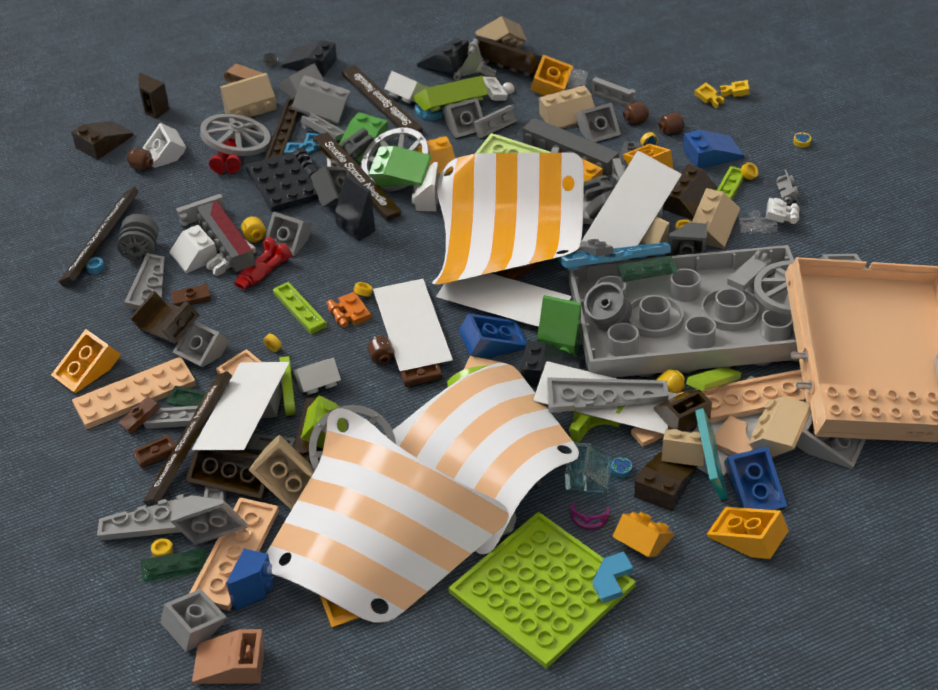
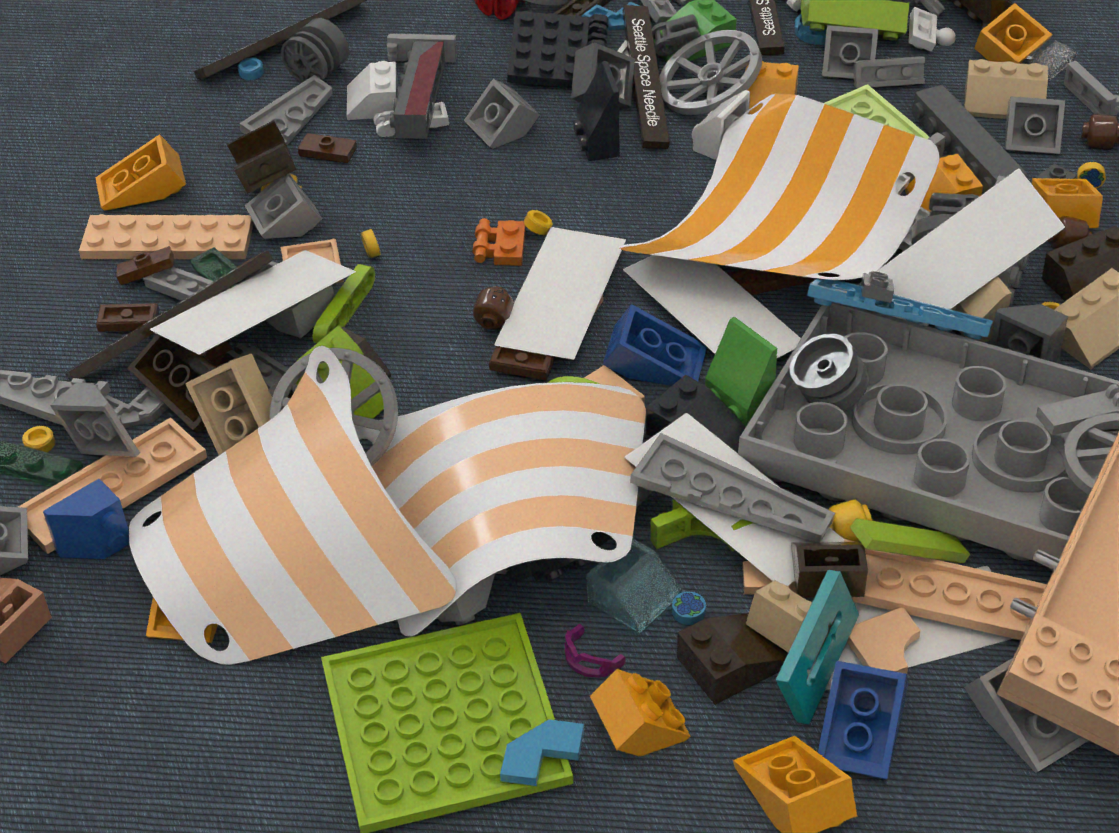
camera: 30 degrees right, 0 degrees up
(253, 229) = (463, 94): yellow head -> none
(255, 274) = (460, 138): red piece -> none
(299, 308) = (443, 215): lime tile -> none
(317, 375) = (387, 306): white slope -> none
(399, 167) = (698, 80): bright green slope -> none
(647, 269) = (932, 346): clear green plate -> none
(780, 425) = (956, 654): tan slope -> none

